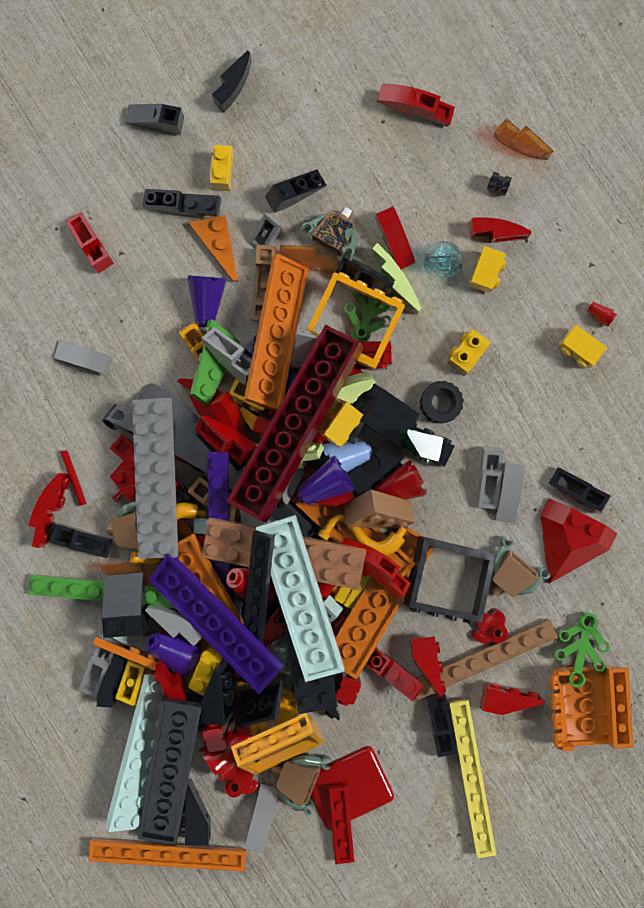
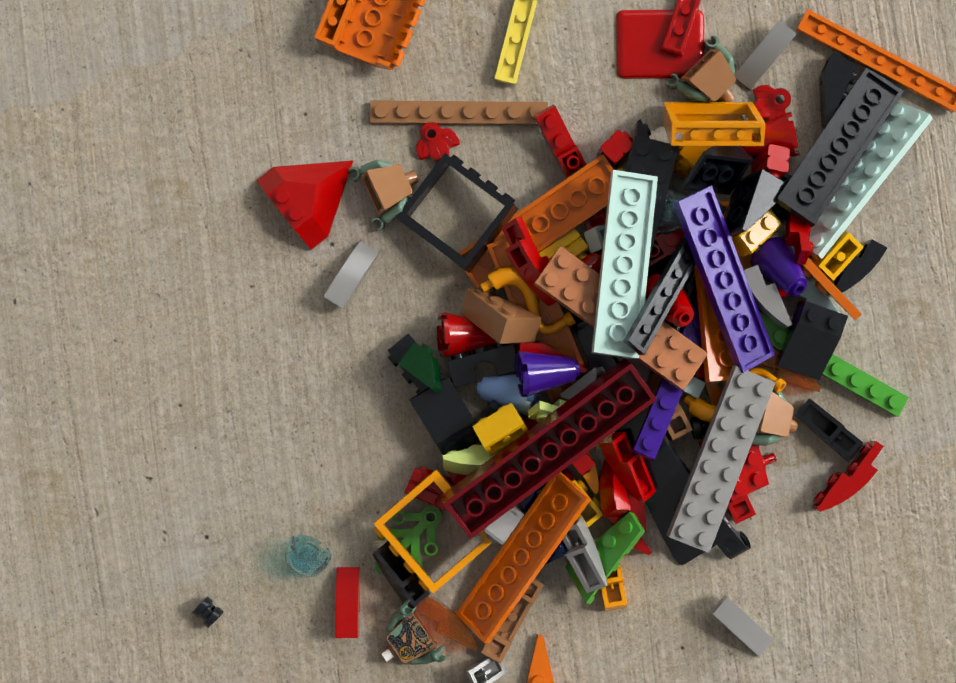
camera: 150 degrees left, 0 degrees up
(73, 478) = (808, 500): red bar -> none
(96, 669) = (870, 286): light grey slope -> none
(205, 297) = (580, 631): dark purple cone -> none
(401, 287) = (365, 548): yellowish green slope -> none
(426, 660) = (520, 138): red slope -> none
(441, 726) = (534, 65): black slope -> none
(455, 407) = (363, 411): black tyre -> none
(468, 352) = (325, 444): yellow brick -> none
(487, 269) = (264, 523): yellow brick -> none
(490, 477) = (364, 300): light grey slope -> none
(497, 229) = (233, 562): red slope -> none
(506, 701) = (456, 60): red slope -> none
(522, 141) = (161, 647): clear orange slope -> none
(579, 490) = (275, 243): black slope -> none
(582, 347) = (202, 394): yellow brick -> none
(583, 647) = (349, 80): bright green plant -> none
(602, 313) = (163, 420): red cone -> none

